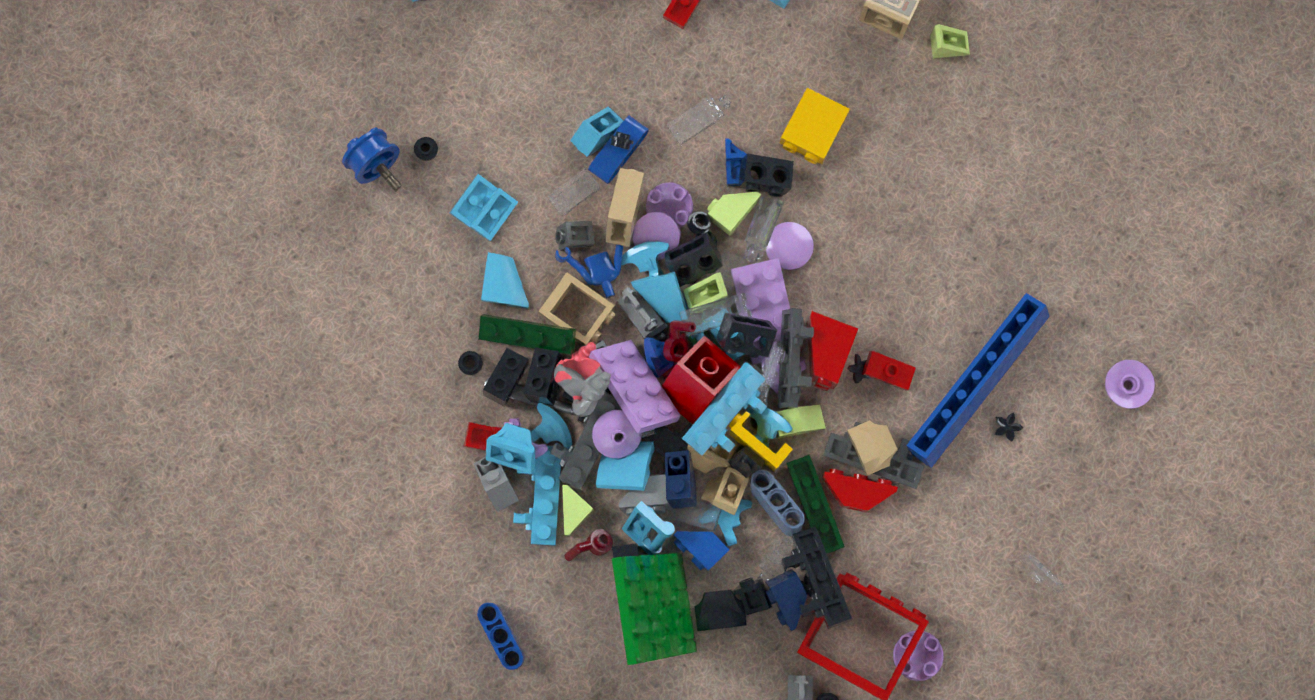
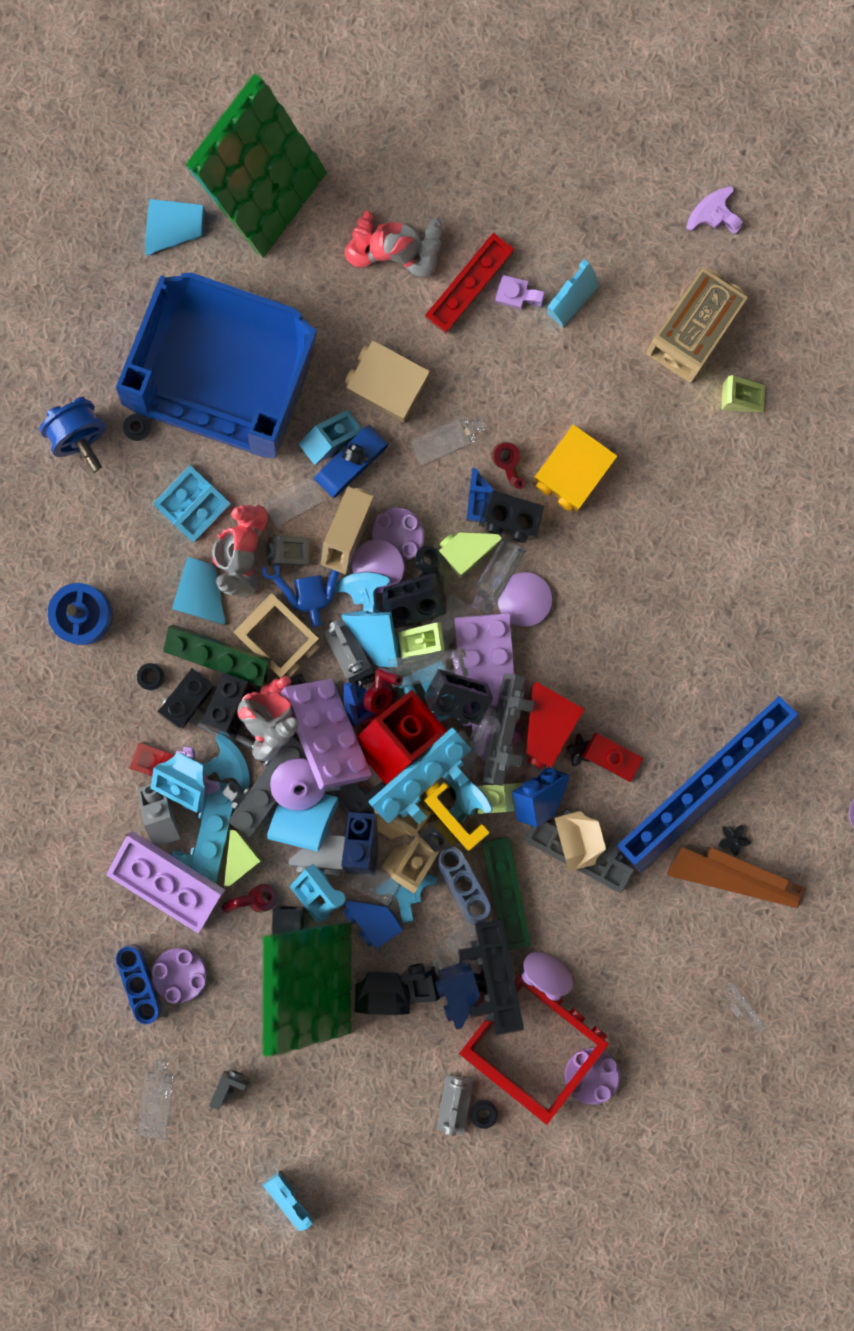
camera: 10 degrees right, 5 degrees up
(400, 316) = (79, 614): none -> blue wheel
(490, 81) = (218, 363): none -> blue slope
(511, 540) = (165, 882): none -> lavender plate
(530, 240) = (236, 551): none -> hair
(535, 623) = (179, 975): none -> lavender dish
(638, 76) = (387, 381): none -> tan brick
(757, 131) = (508, 464): none -> dark red plate
(831, 414) = (540, 797): none -> blue slope
(857, 491) = (555, 886): red slope -> none
(864, 570) = (547, 975): none -> lavender dish
(1013, 457) = (734, 875): none -> dark orange wedge

